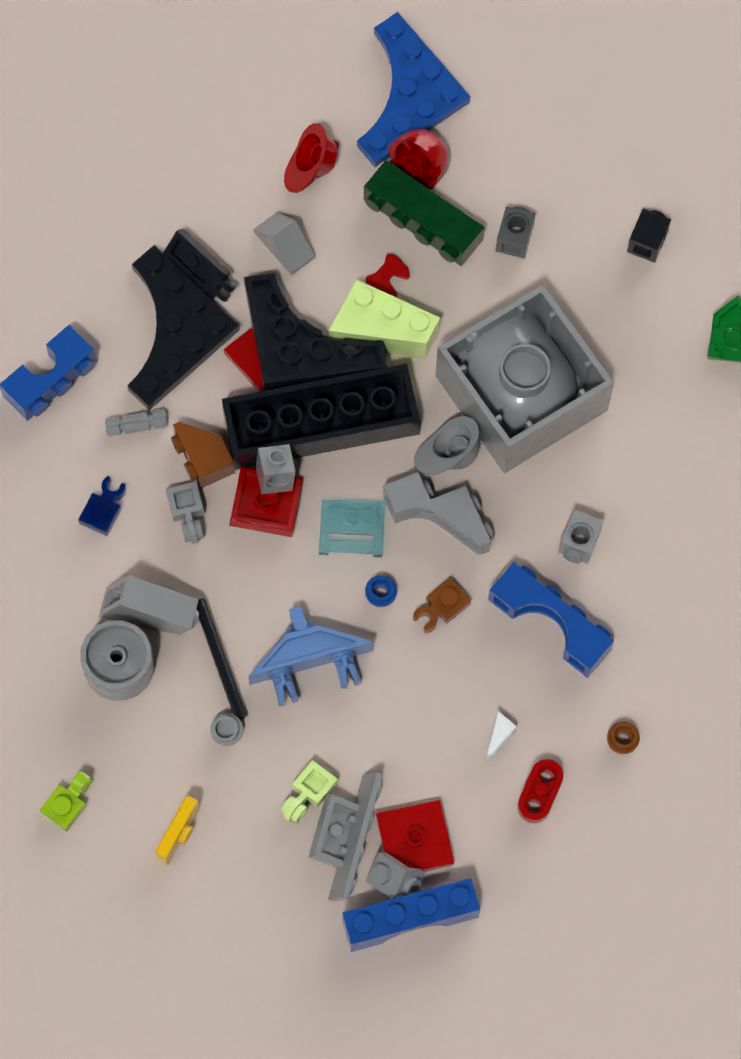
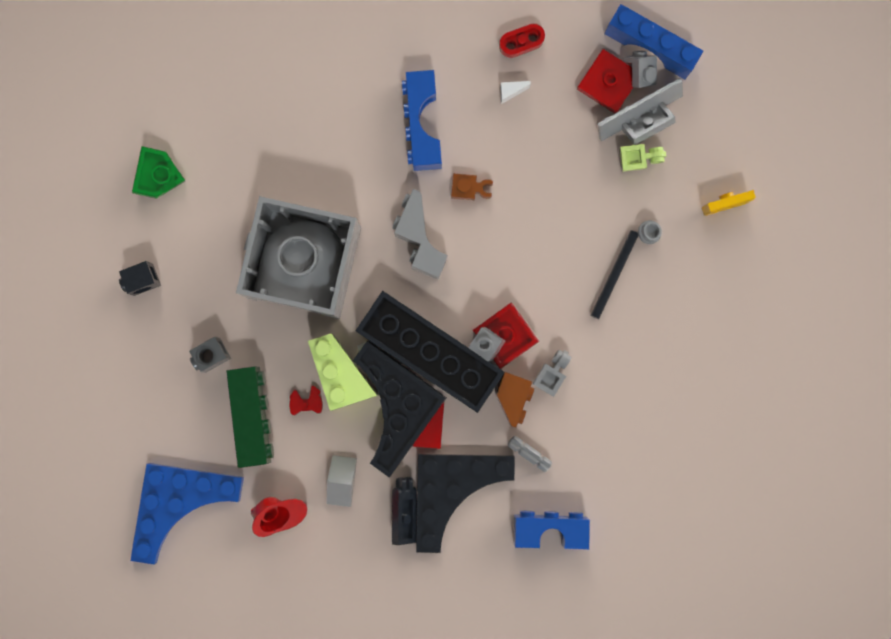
camera: 135 degrees left, 15 degrees up
(65, 805) = (770, 276): lime plate -> none
(102, 510) = (597, 420): clear blue plate -> none
(111, 642) = (689, 318): light grey wheel -> none
(149, 606) = (628, 337): light grey slope -> none
(306, 648) = (565, 232): medium blue connector -> none
(352, 519) = (468, 282): clear light blue plate -> none
(380, 582) = (494, 219): blue plate -> none
(420, 156) = (215, 452): red cylinder -> none
(450, 447) = (380, 265): light grey piece -> none
(585, 525) = (351, 144): light grey brick -> none
(626, 729) = (450, 20): dark orange plate -> none

